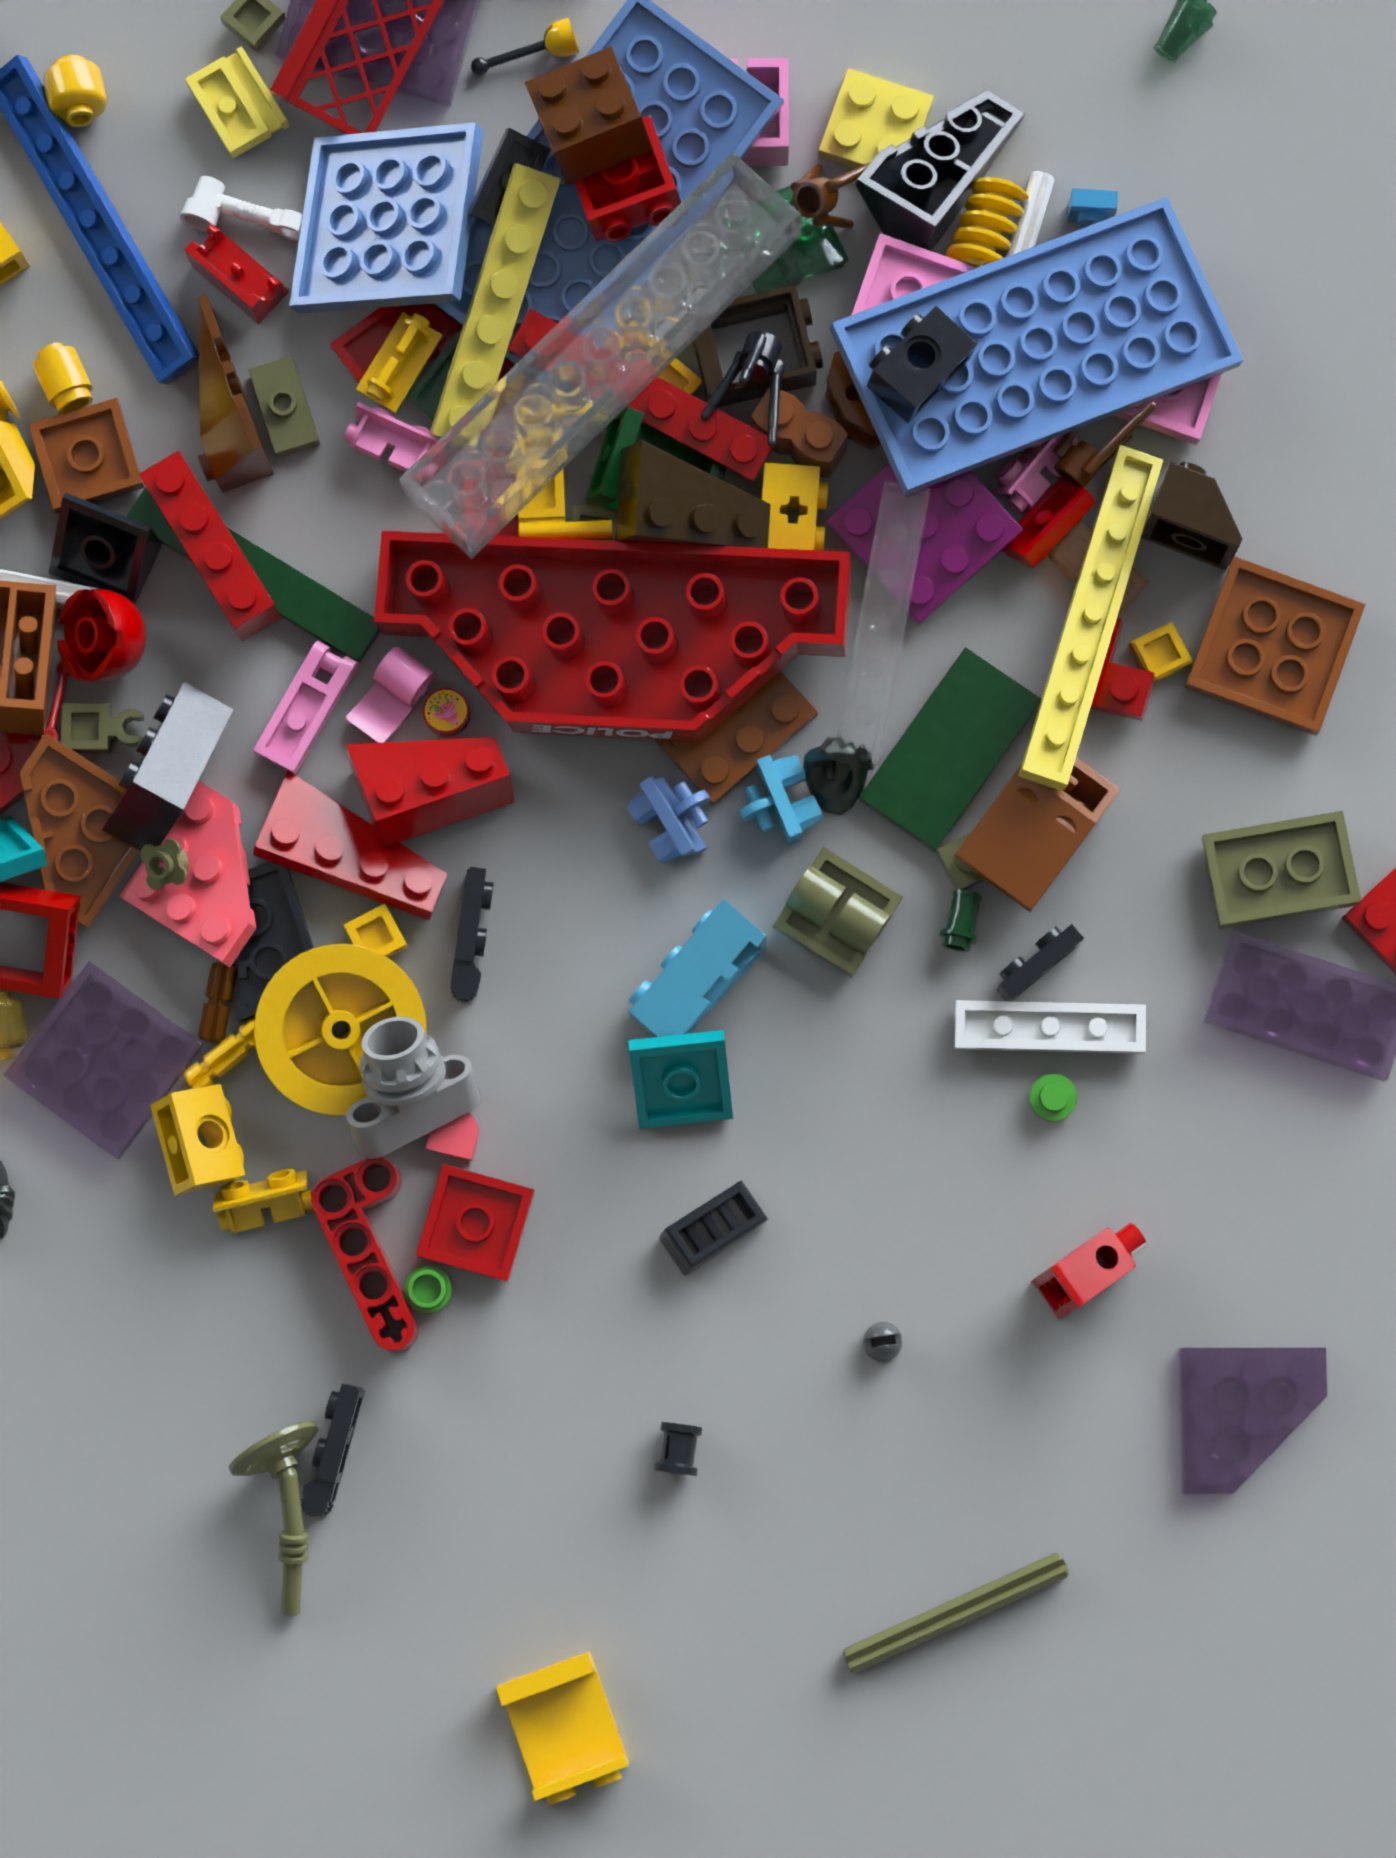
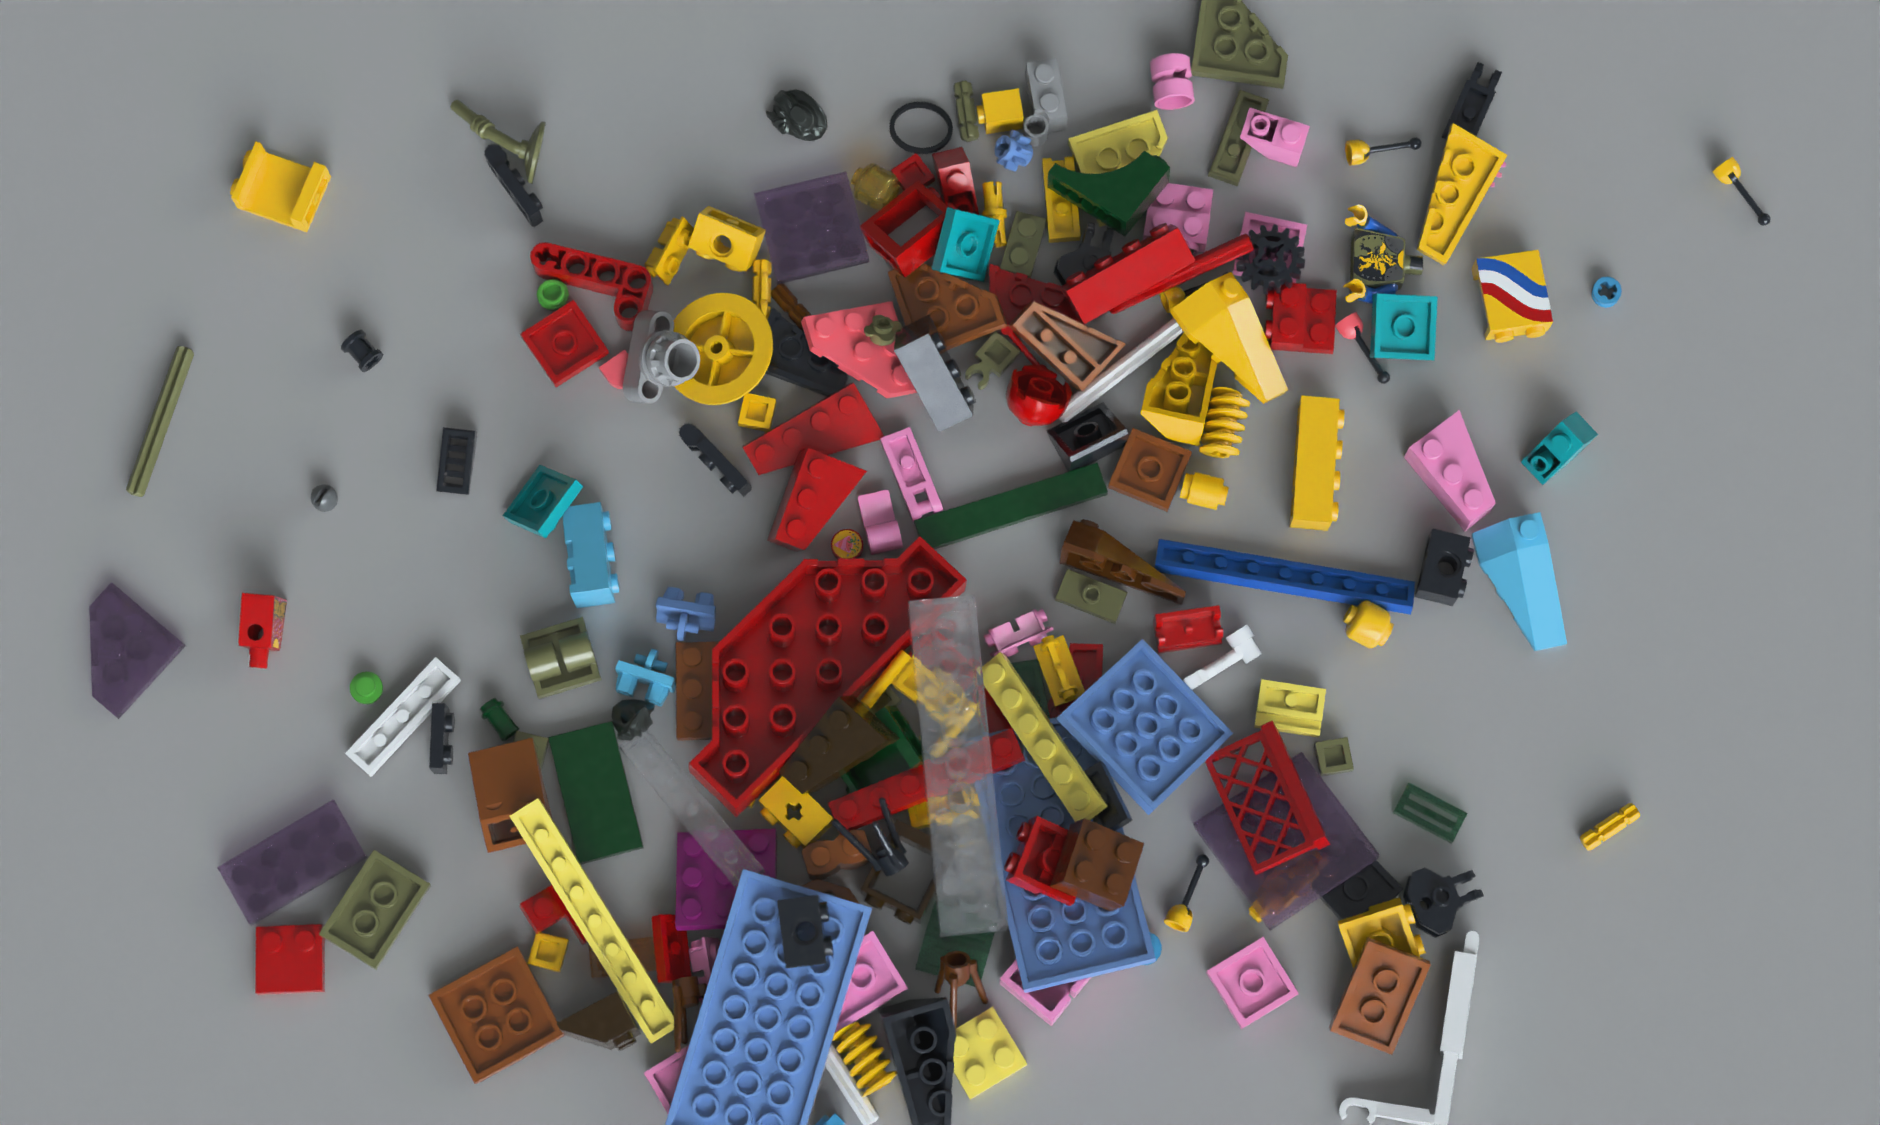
camera: 125 degrees right, 5 degrees down
(210, 546) = (1038, 488): red brick -> none

